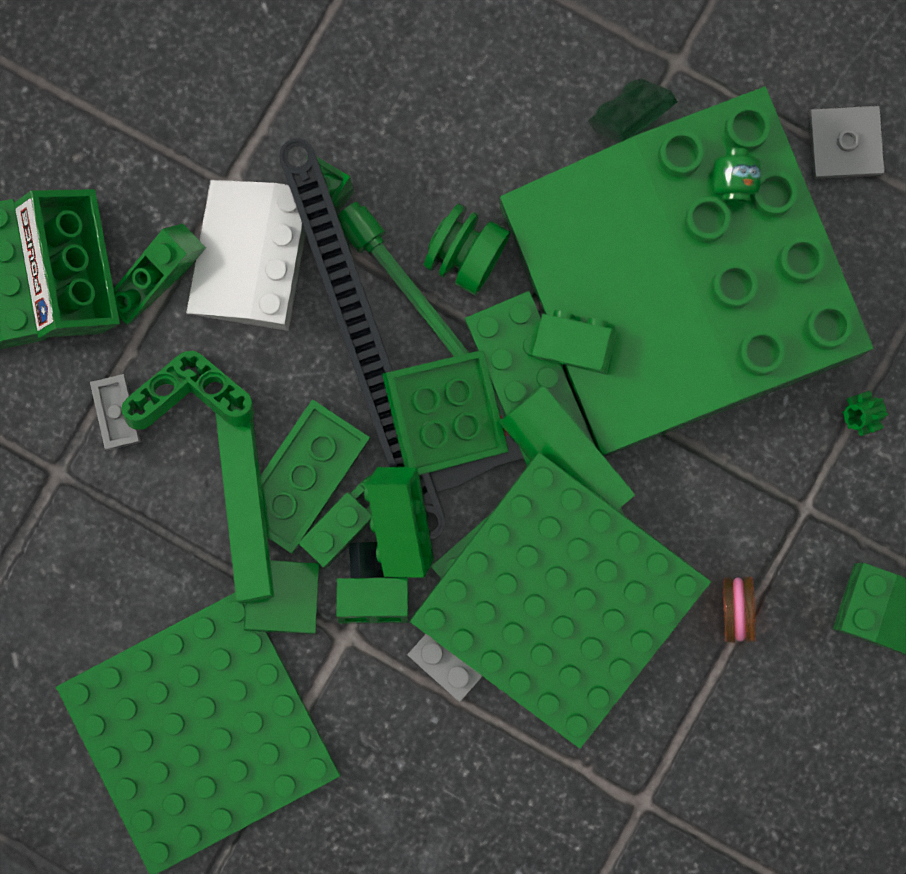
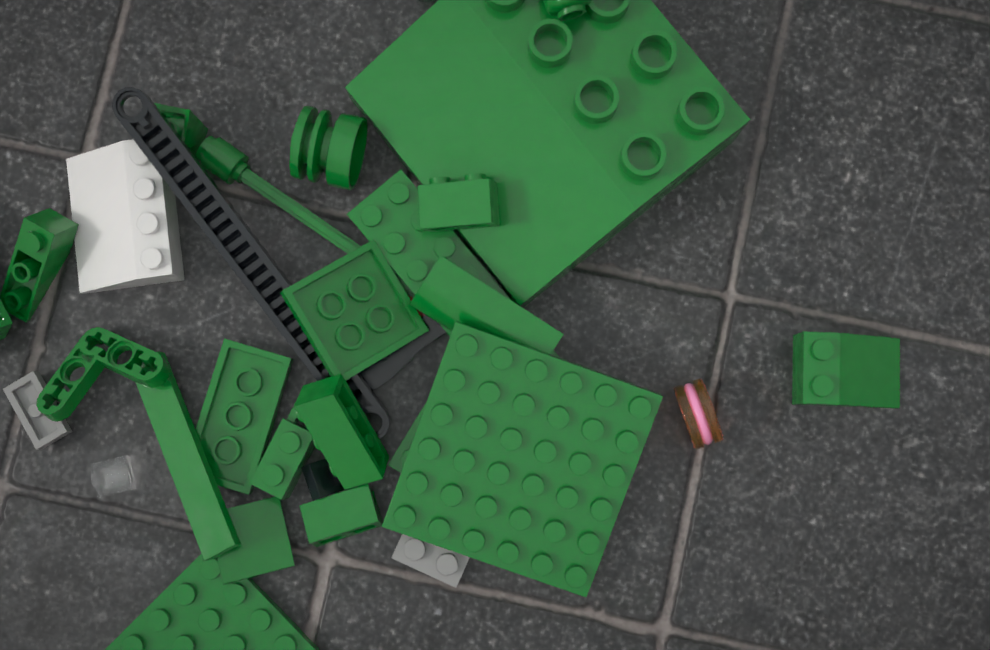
camera: 15 degrees left, 0 degrees up
(167, 497) = (113, 476): none -> clear tile
(865, 413) = (759, 188): green gear -> none

